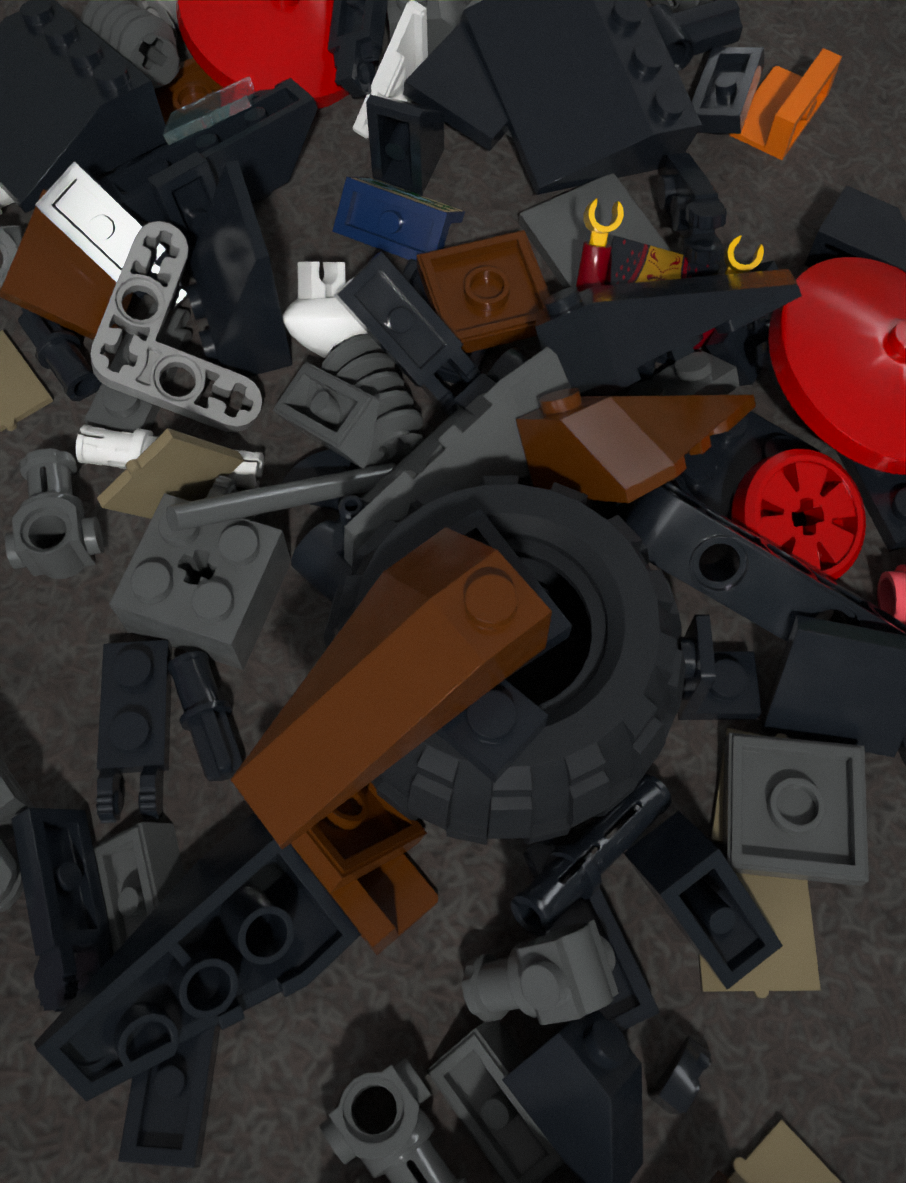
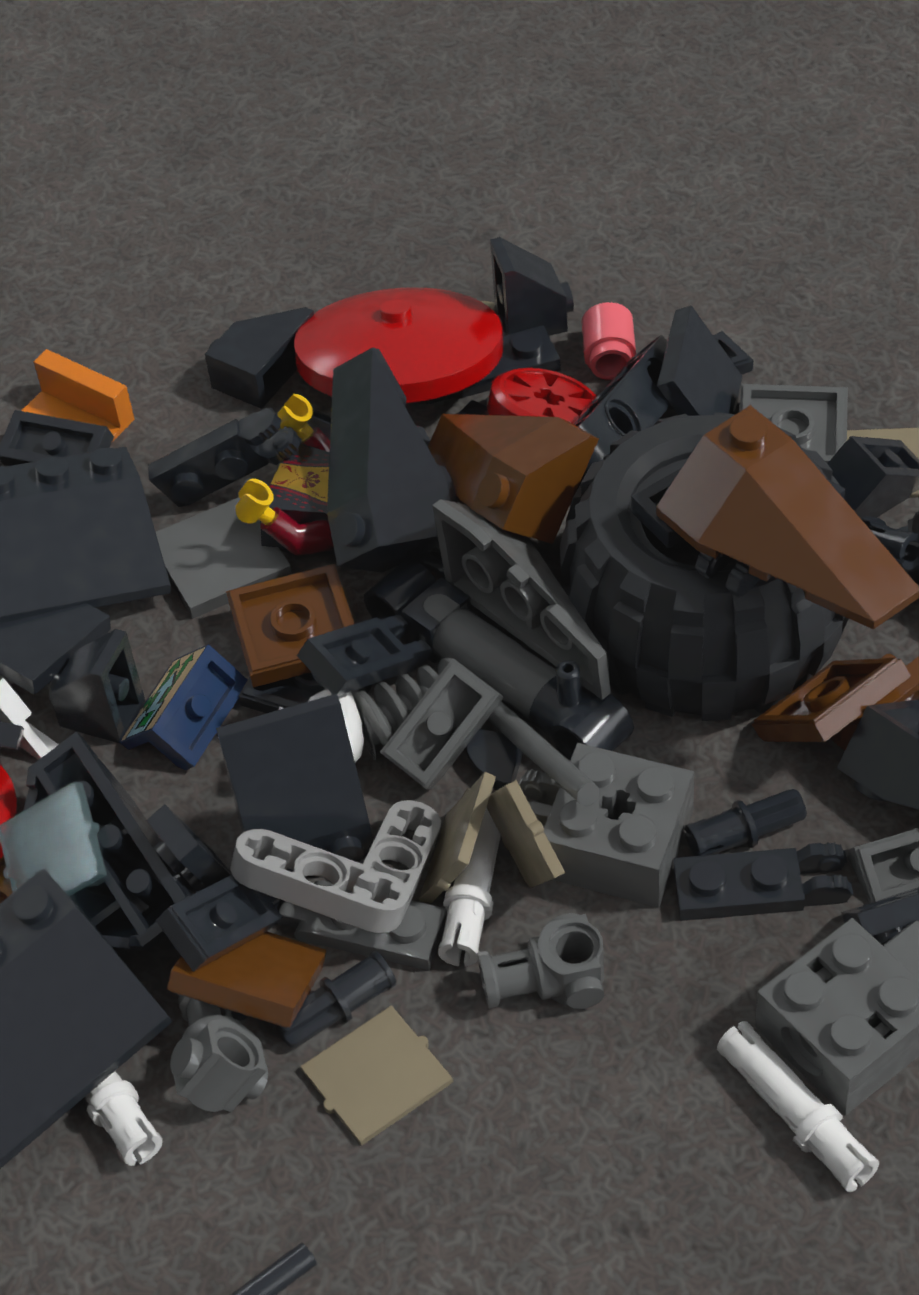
camera: 85 degrees left, 15 degrees down
(196, 431) = (457, 838): none -> dark tan piece

